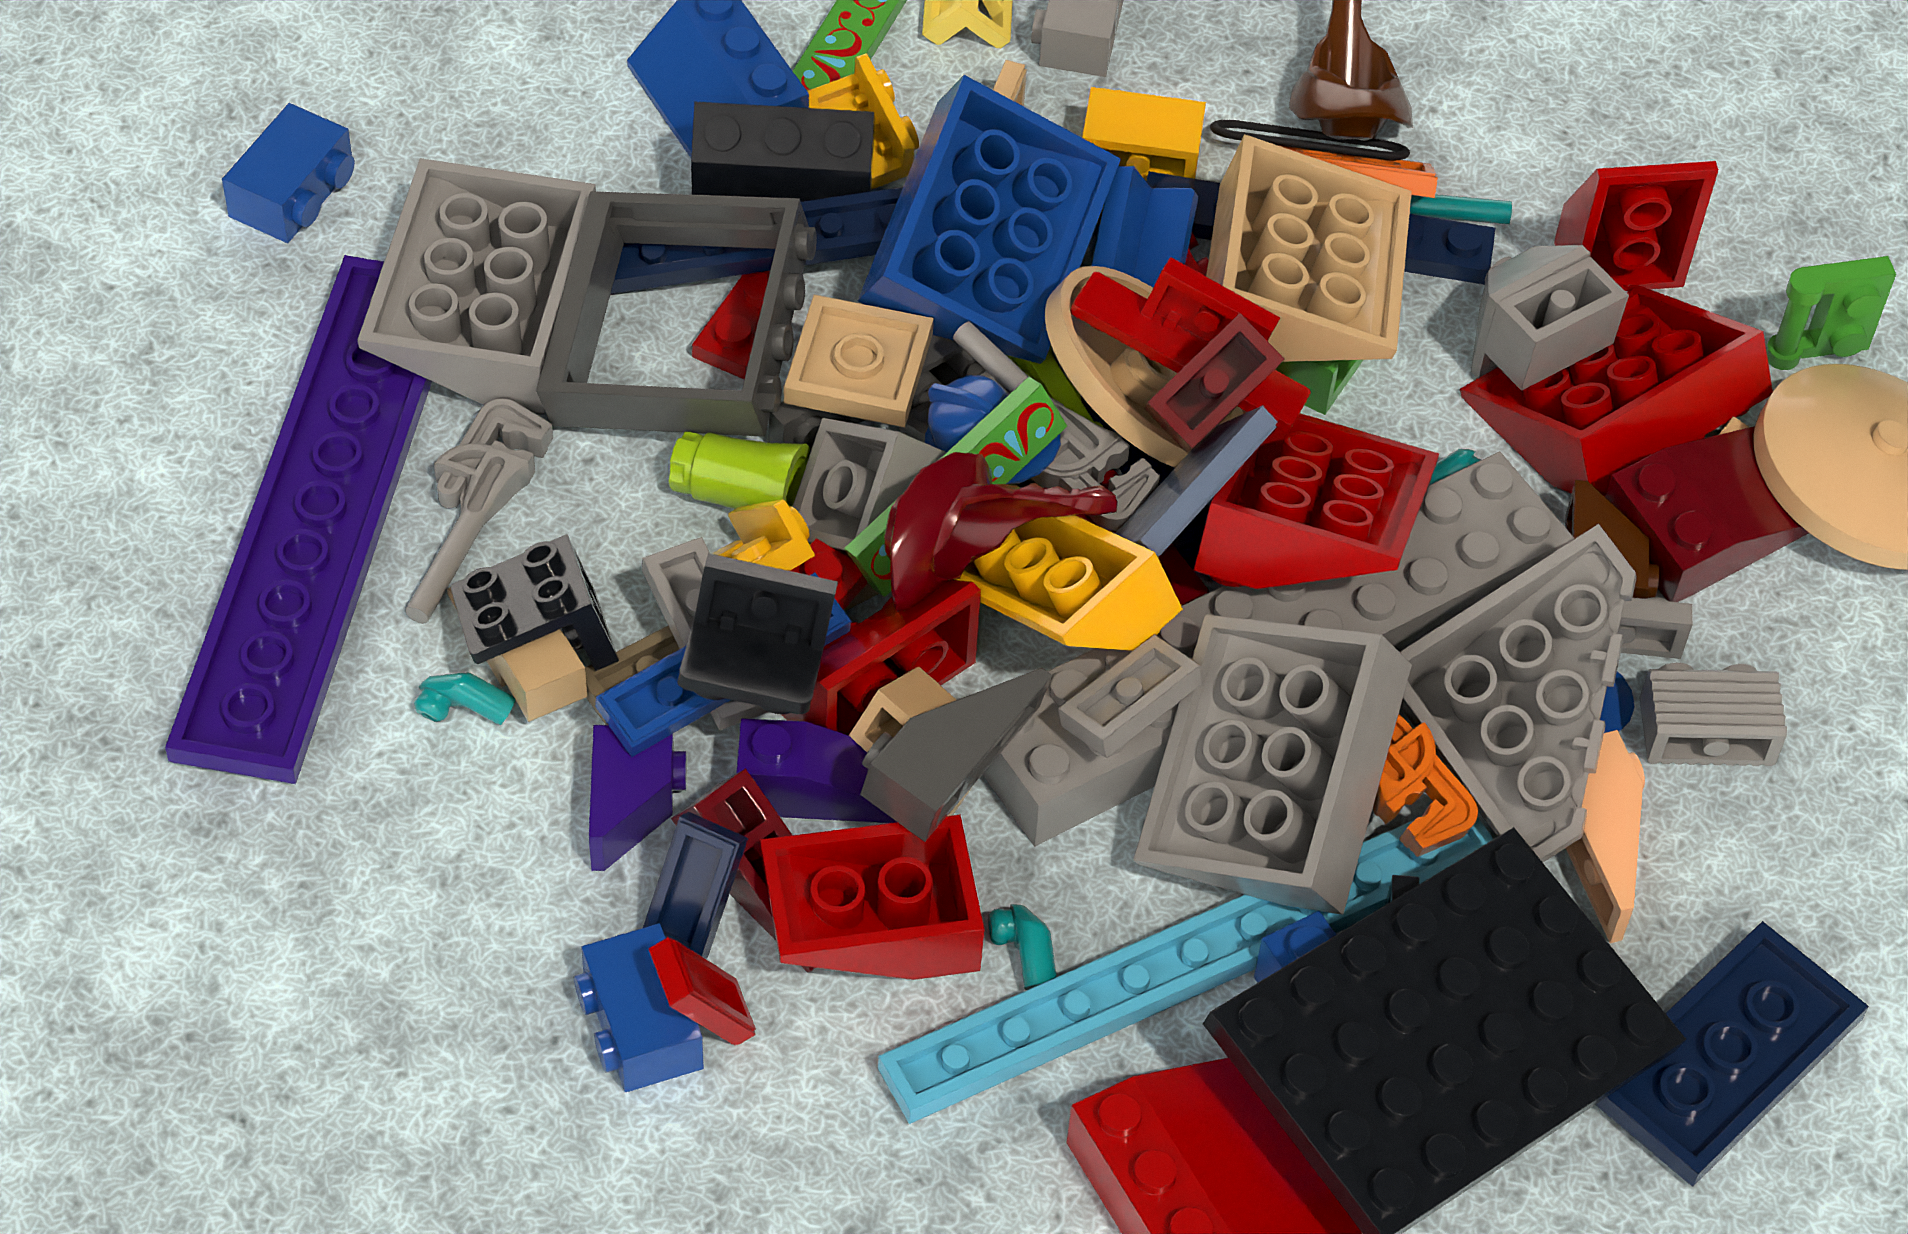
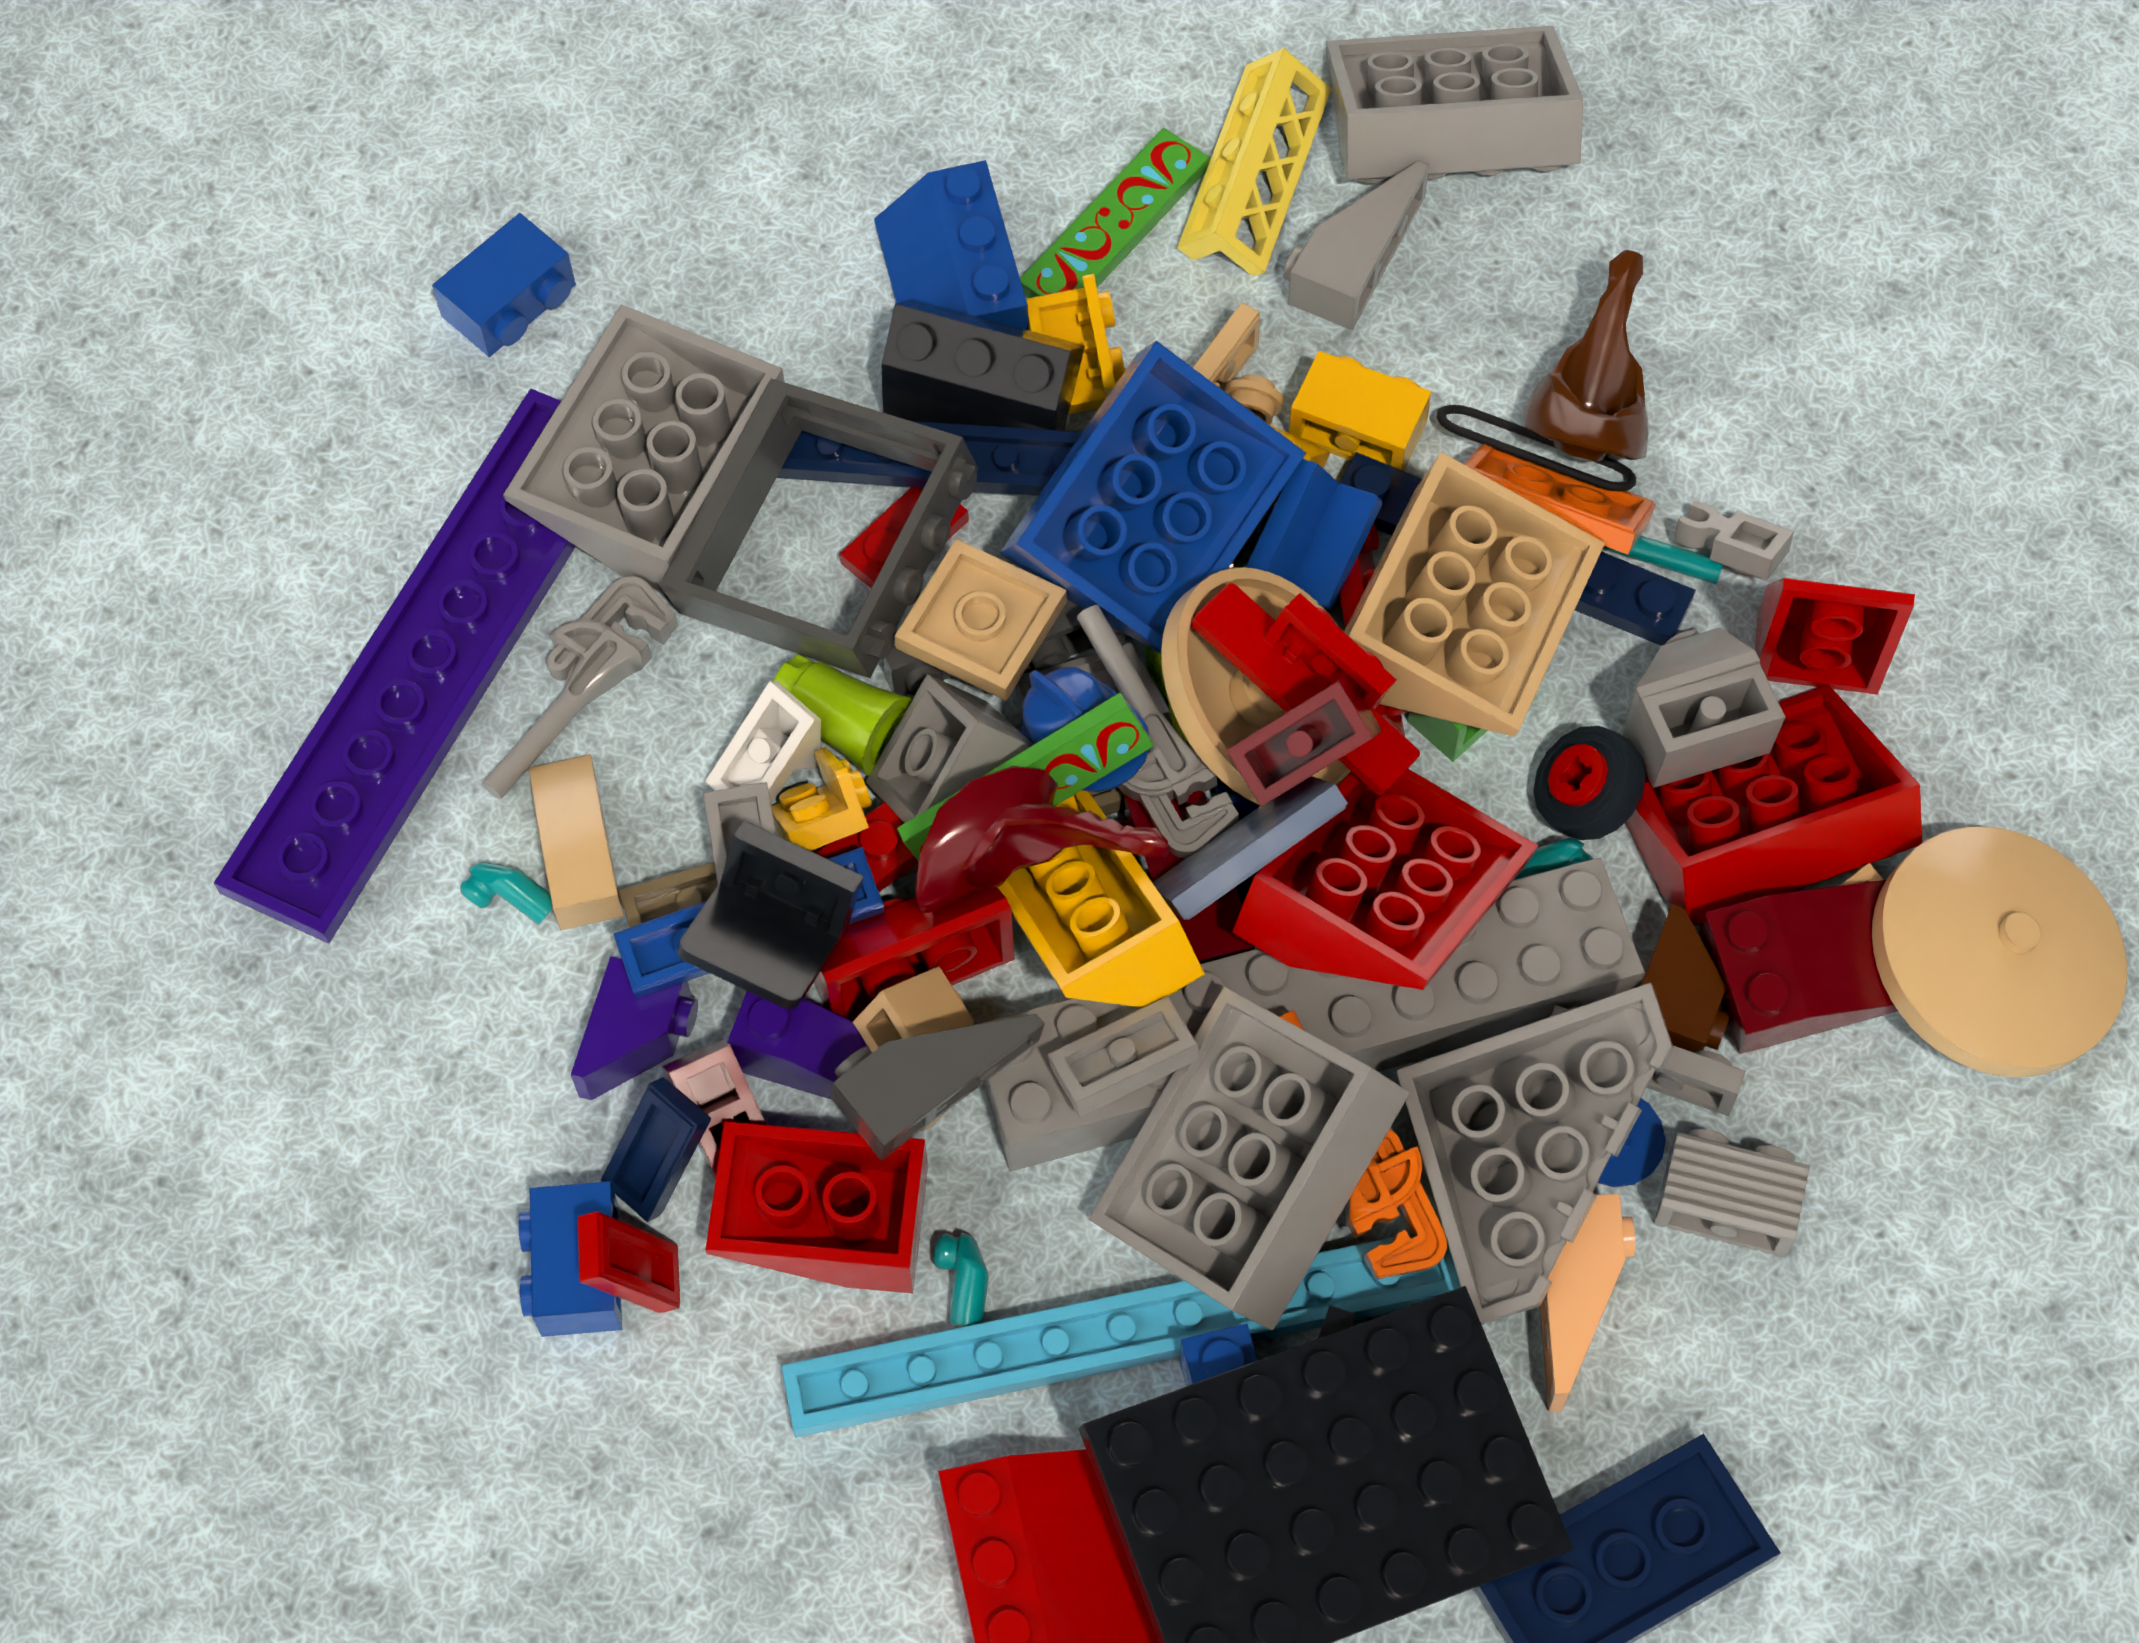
camera: 20 degrees right, 10 degrees up
(531, 598) = (595, 808): black bracket -> none
(687, 506) = (769, 743): none -> white slope
(1484, 396) = (1589, 783): none -> black wheel
(1521, 181) = (1741, 543): none -> light grey plate
(1846, 313) = (2026, 775): bright green plate -> none

